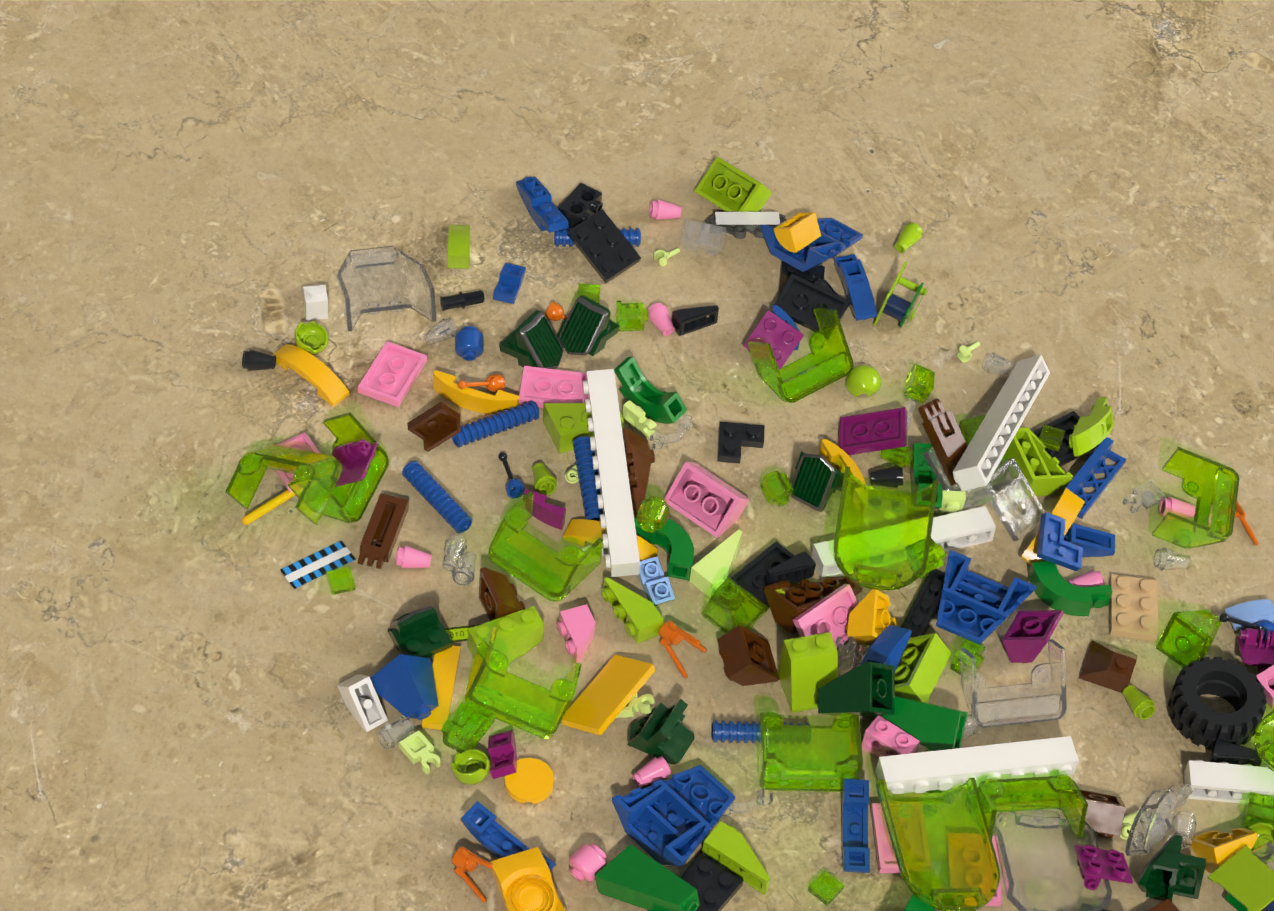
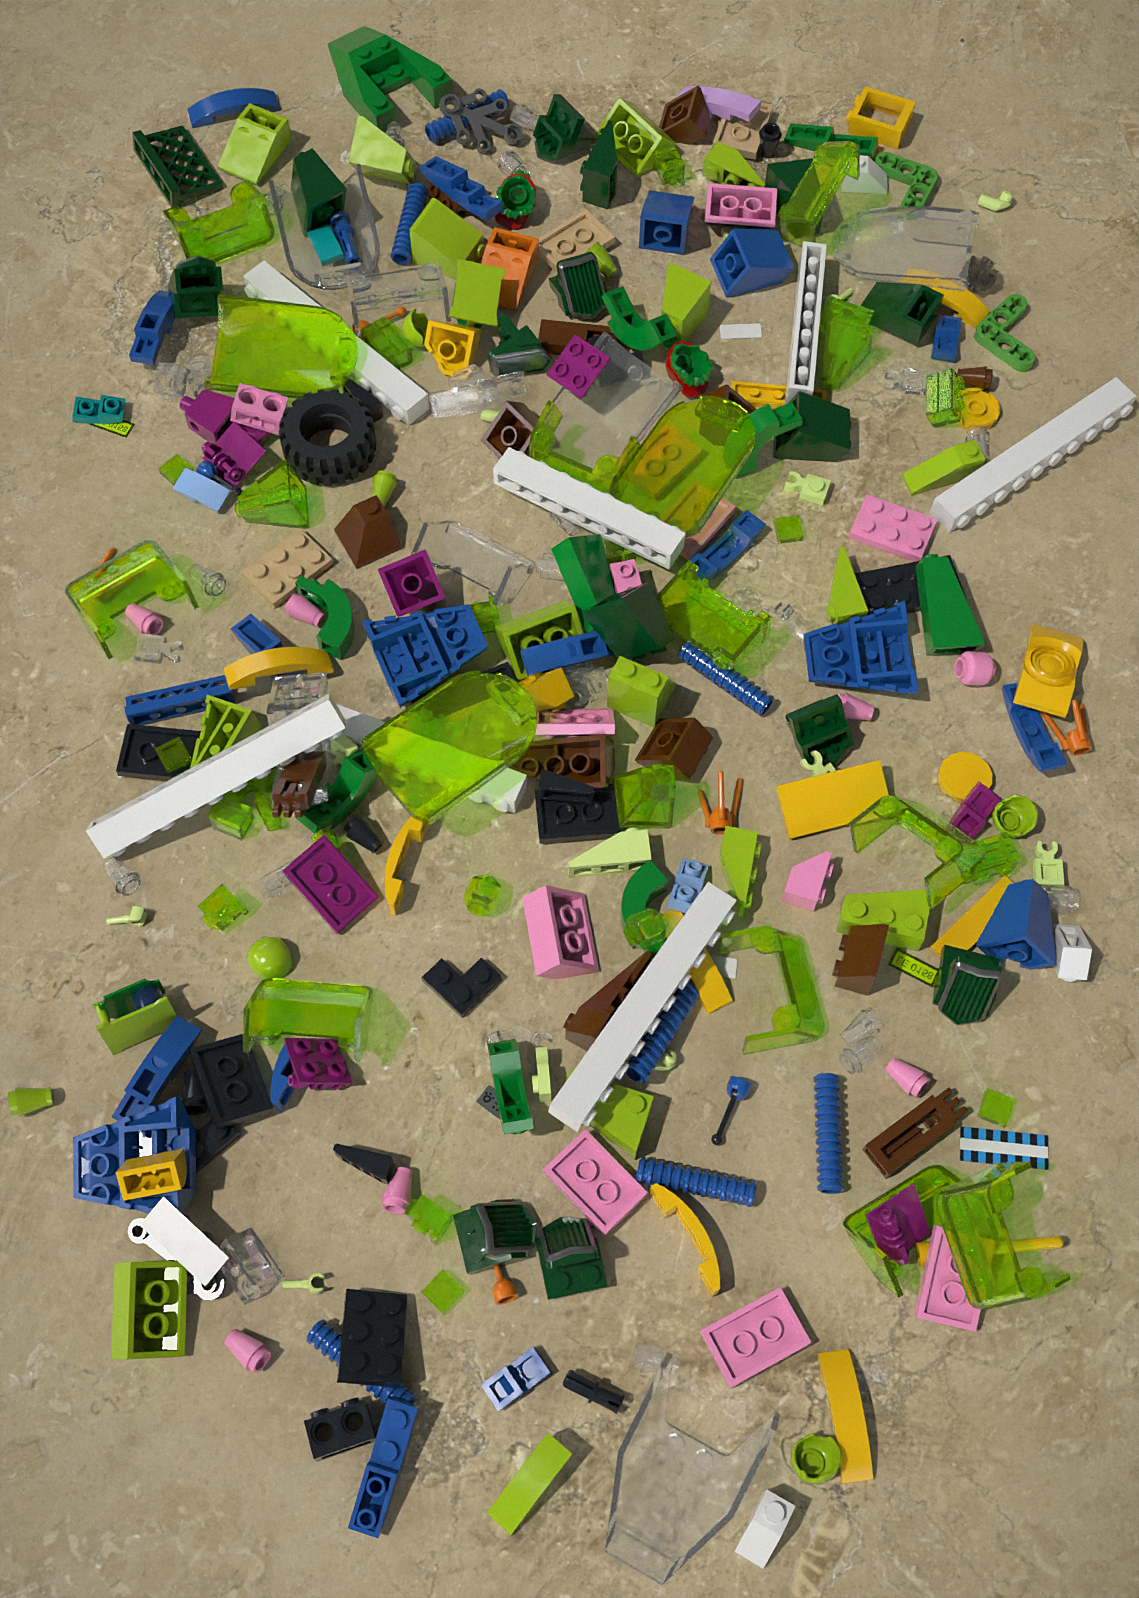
camera: 135 degrees left, 15 degrees up
(256, 360) = (897, 1475): black cone -> none
(435, 425) = (771, 1210): reddish brown bracket -> none
(469, 343) = (638, 1314): blue head -> none
(493, 383) = (655, 1237): orange hinge -> none
(543, 479) = (701, 1075): lime cone -> none
(545, 512) = (733, 1043): magenta slope -> none
(815, 481) = (437, 869): dark green piece -> none
(1052, 544) = (304, 638): blue plate -> none
(1092, 428) = (135, 723): lime slope -> none

